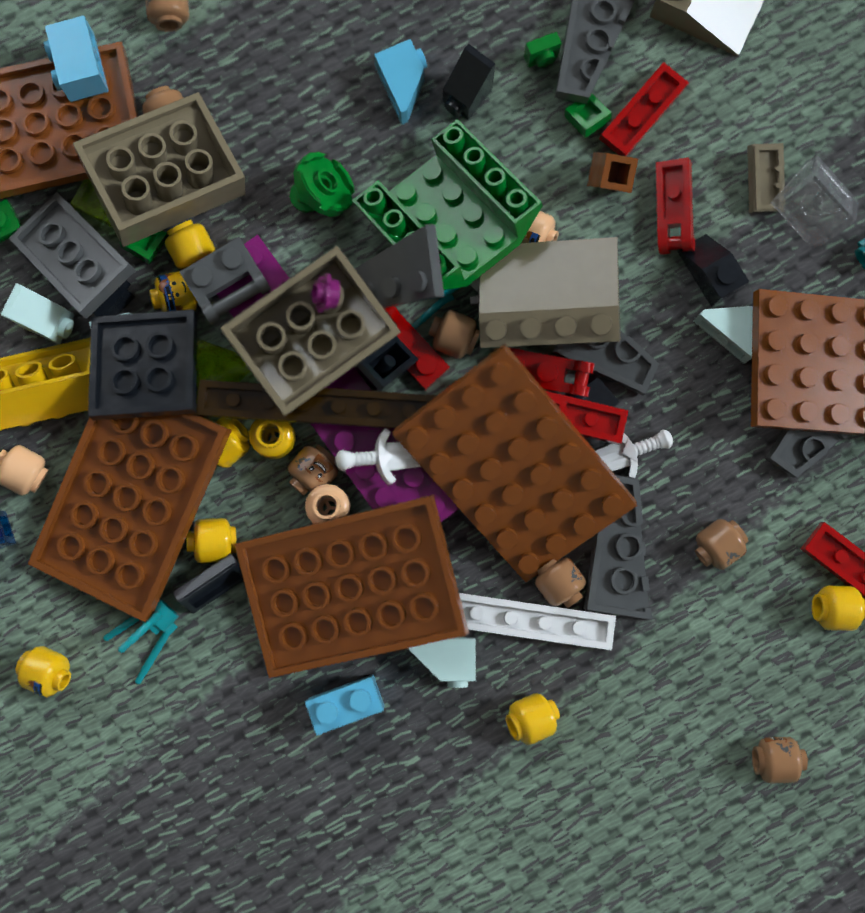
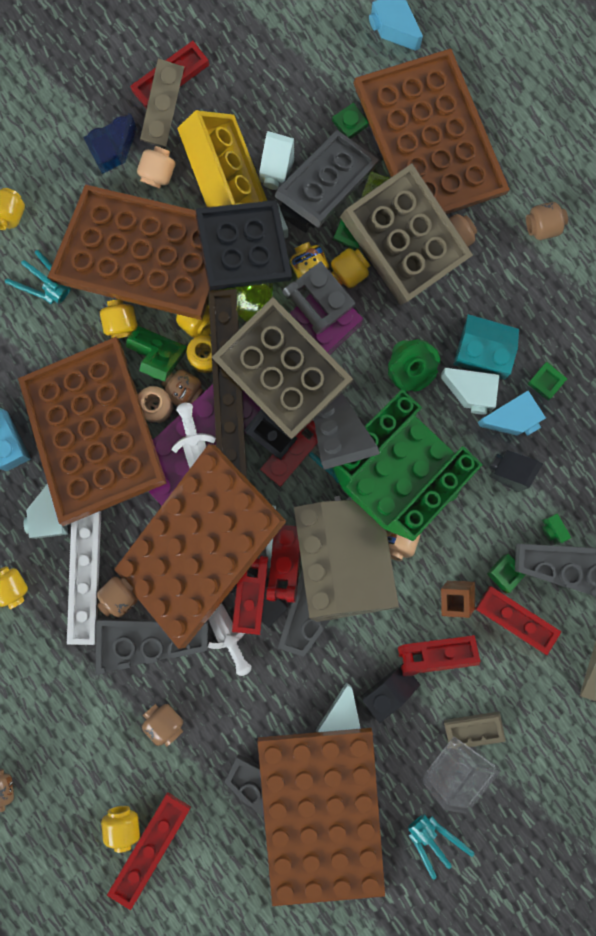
camera: 85 degrees right, 0 degrees up
(75, 59) = (486, 156): medium azure brick -> none
(210, 584) = (84, 322): black tile -> none
(261, 489) = (160, 352): none -> green plate
(313, 96) = (487, 347): none -> teal slope
(326, 293) = (310, 374): magenta plate -> none
(362, 120) = (472, 388): none -> light aqua slope
(364, 34) = (547, 381): none -> green plate
(454, 334) = (306, 486): medium nougat head -> none

